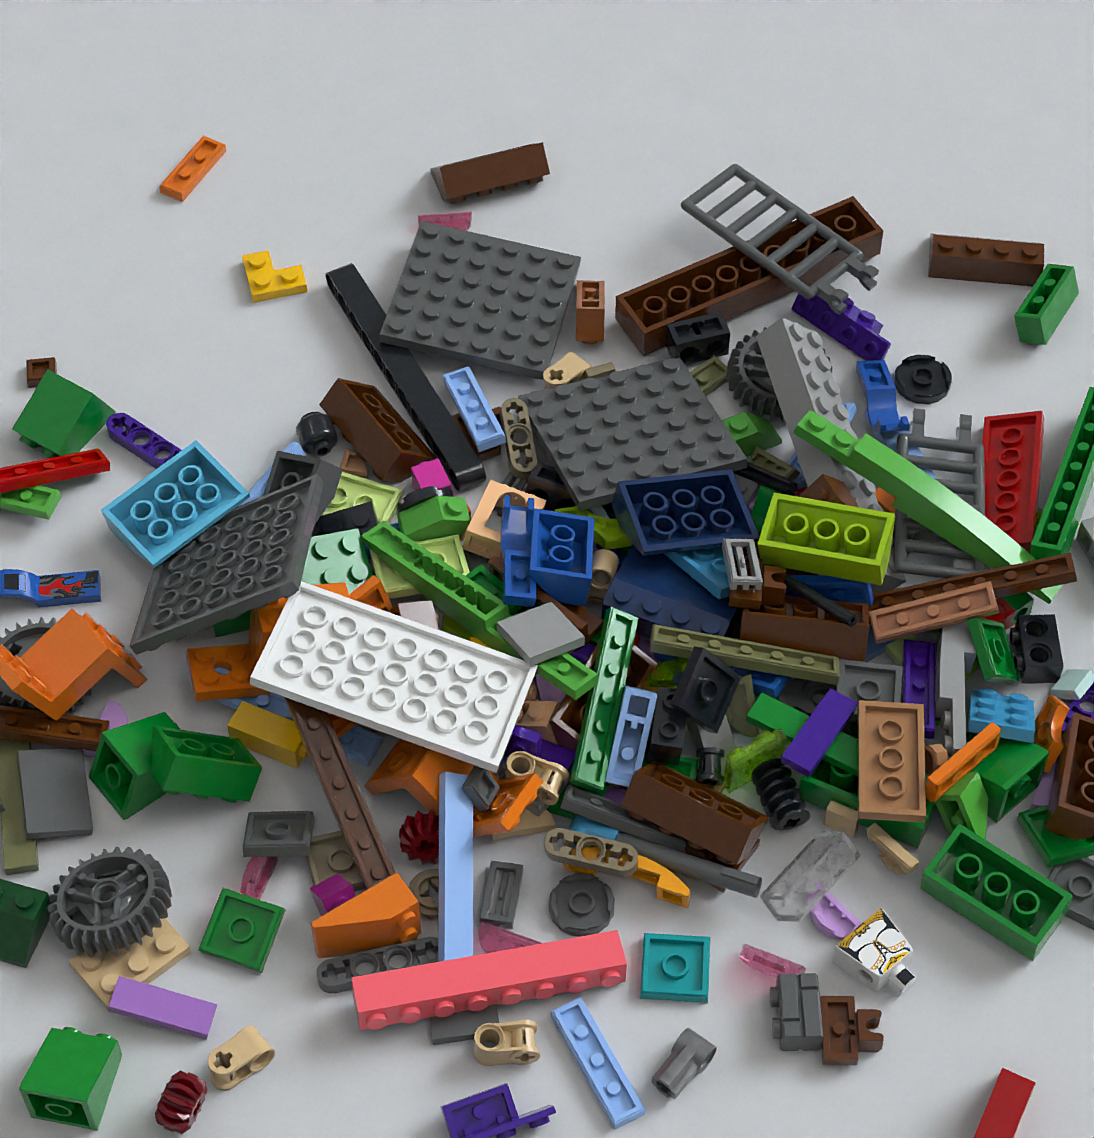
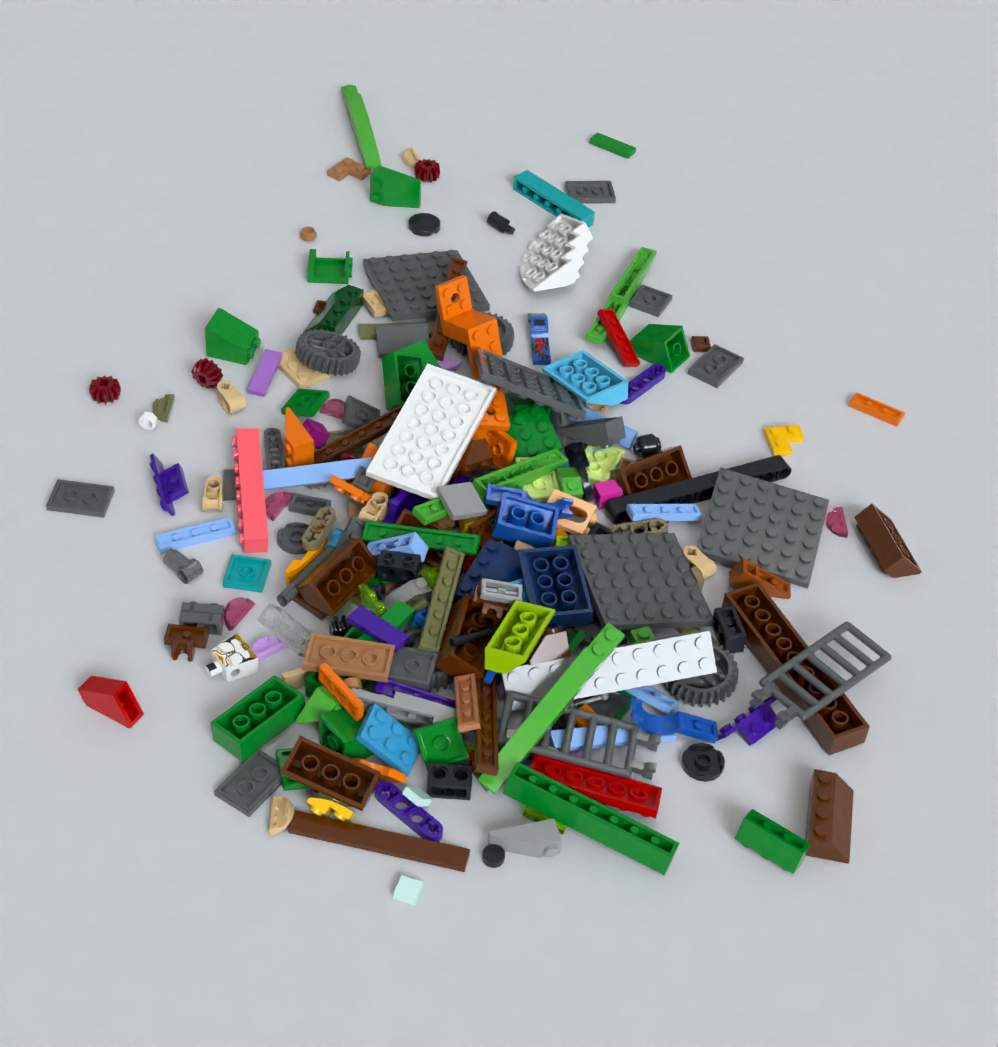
camera: 90 degrees right, 10 degrees down
(98, 354) = (715, 366): none -> dark grey tile
(704, 689) = (412, 573): black hinge -> none

